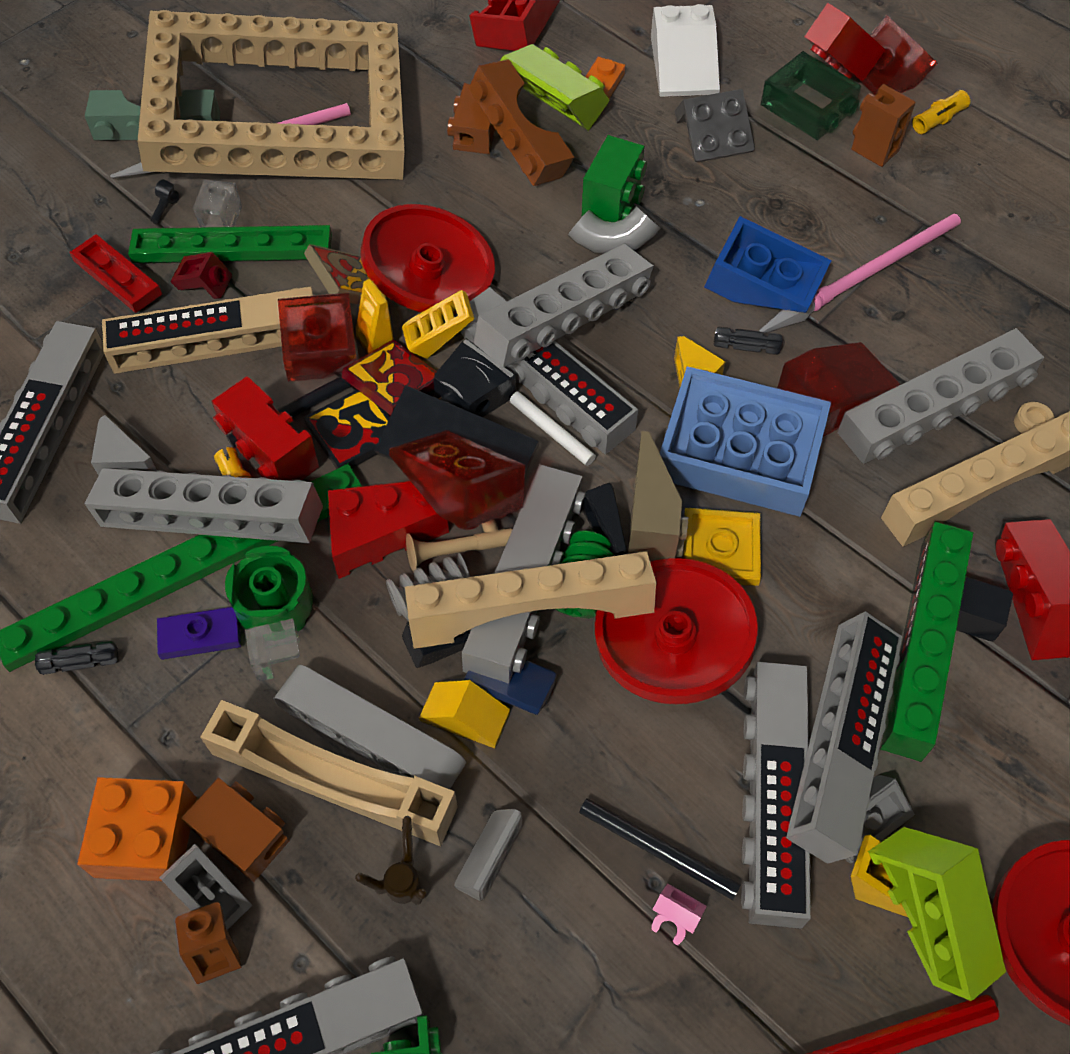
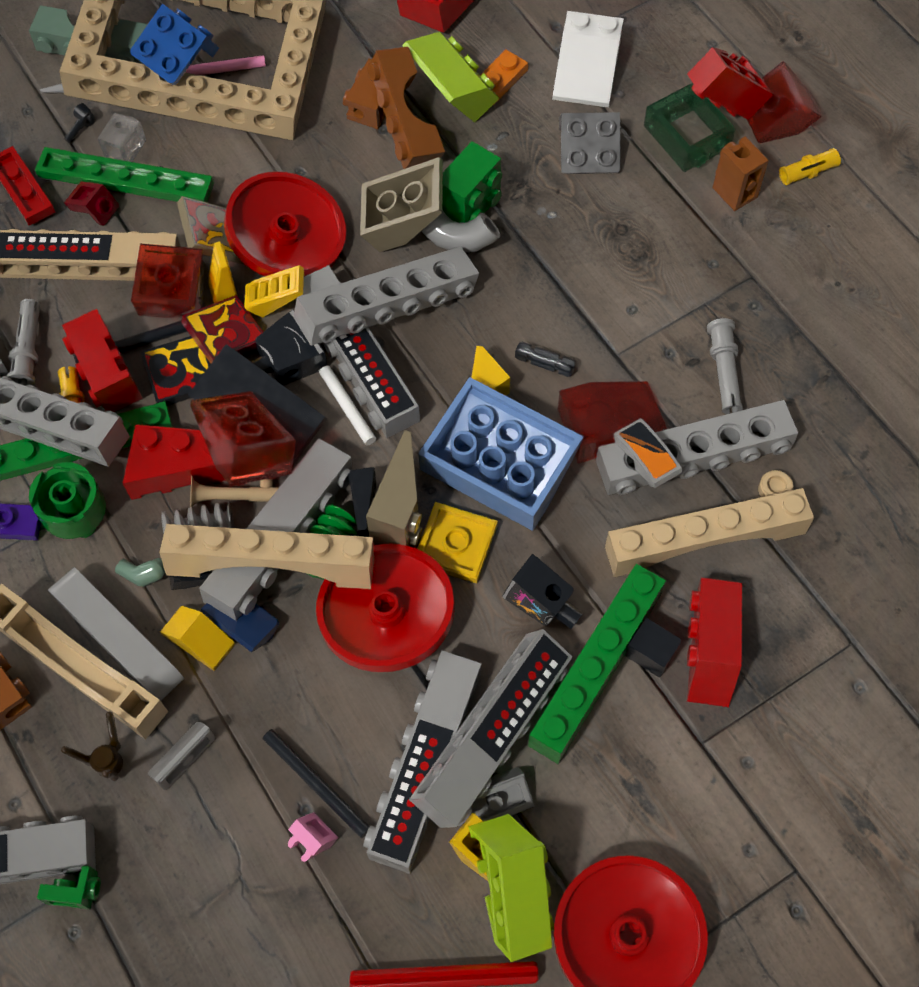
camera: 15 degrees right, 5 degrees up
(169, 446) = (23, 355): none -> light grey pin
(256, 93) = (172, 44): none -> blue bracket
(271, 645) = (57, 546): clear panel -> none
(380, 656) = (142, 574): none -> sand green arm
(552, 211) = (401, 204): none -> dark tan slope
(766, 269) = (580, 296): blue slope -> none
(827, 293) = (605, 337): bright pink piece -> none
(841, 577) = (542, 594): none -> black torso
(909, 407) = (649, 453): none -> slope
(931, 299) = (724, 352): none -> light grey pin

